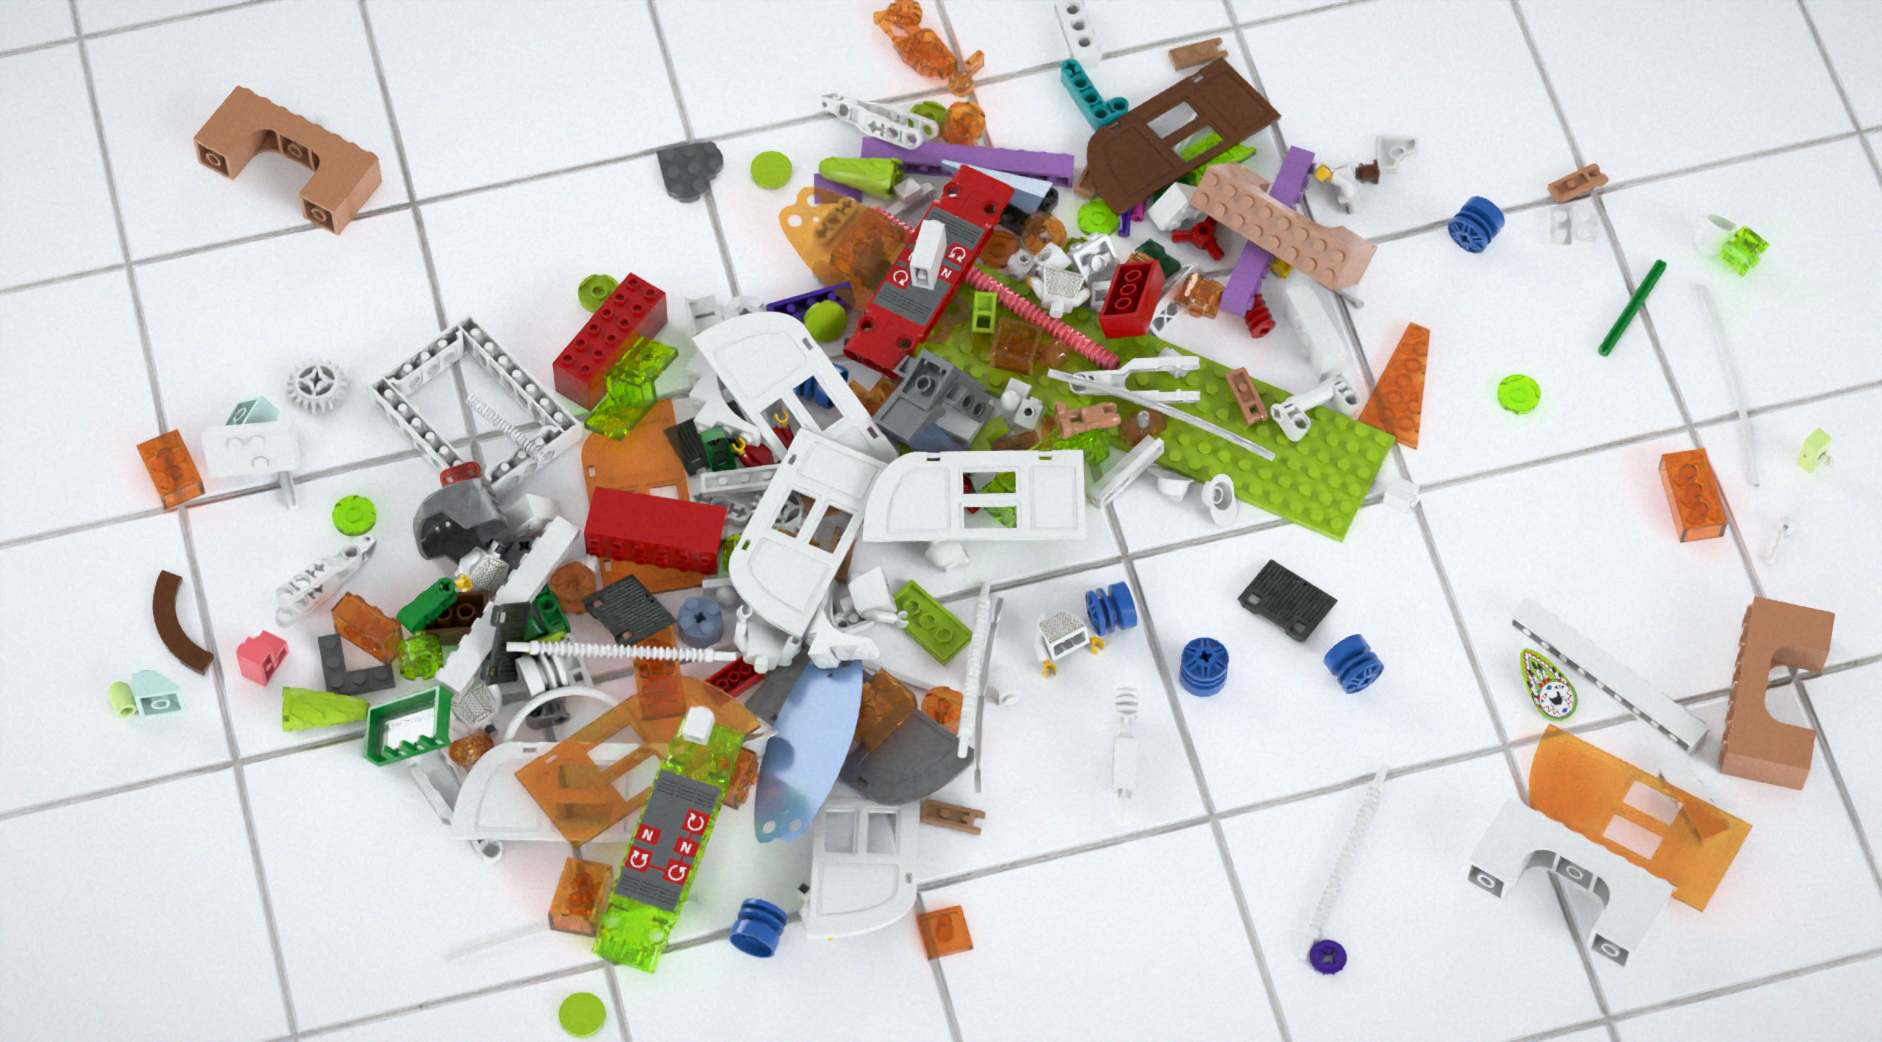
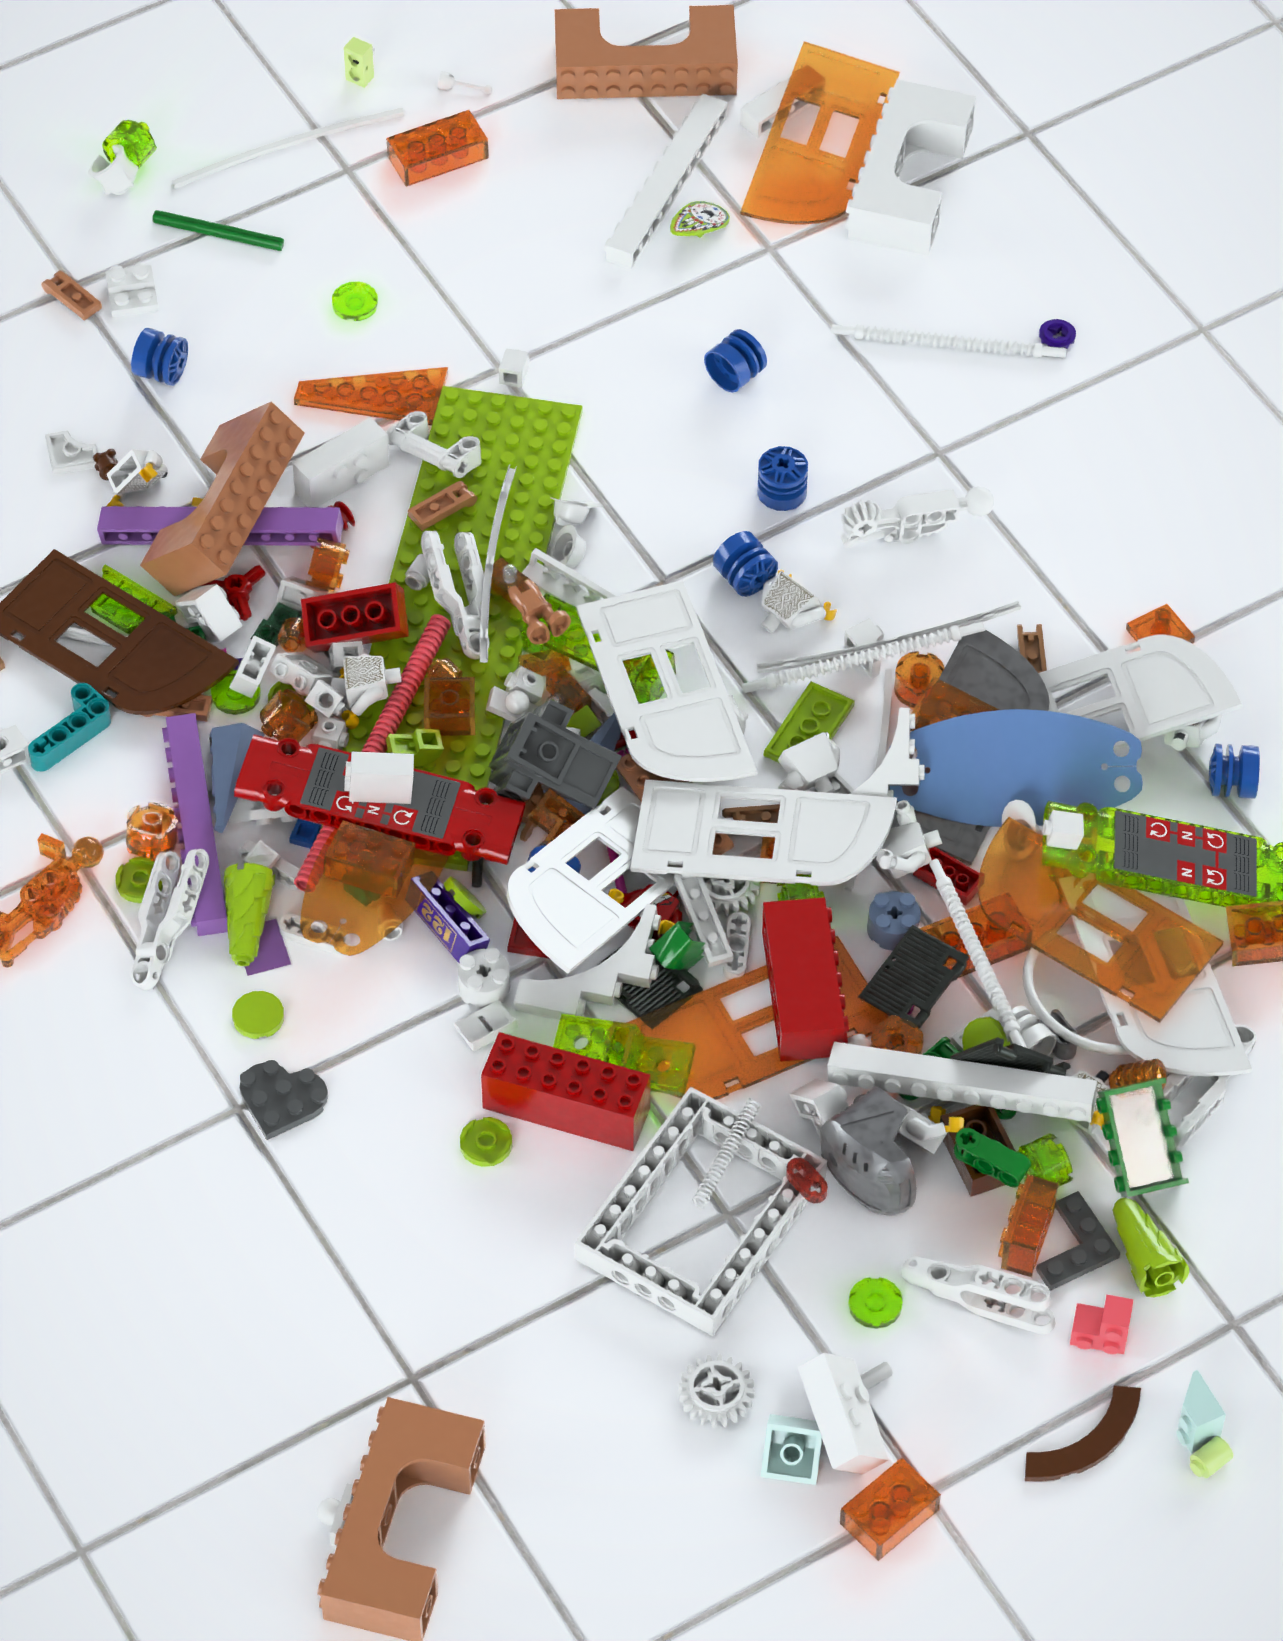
camera: 105 degrees left, 5 degrees down
(723, 589) = (843, 911): white tile -> none
(1105, 220) = (252, 667): none -> white brick
(1286, 600) = (671, 435): pearl dark grey window -> none

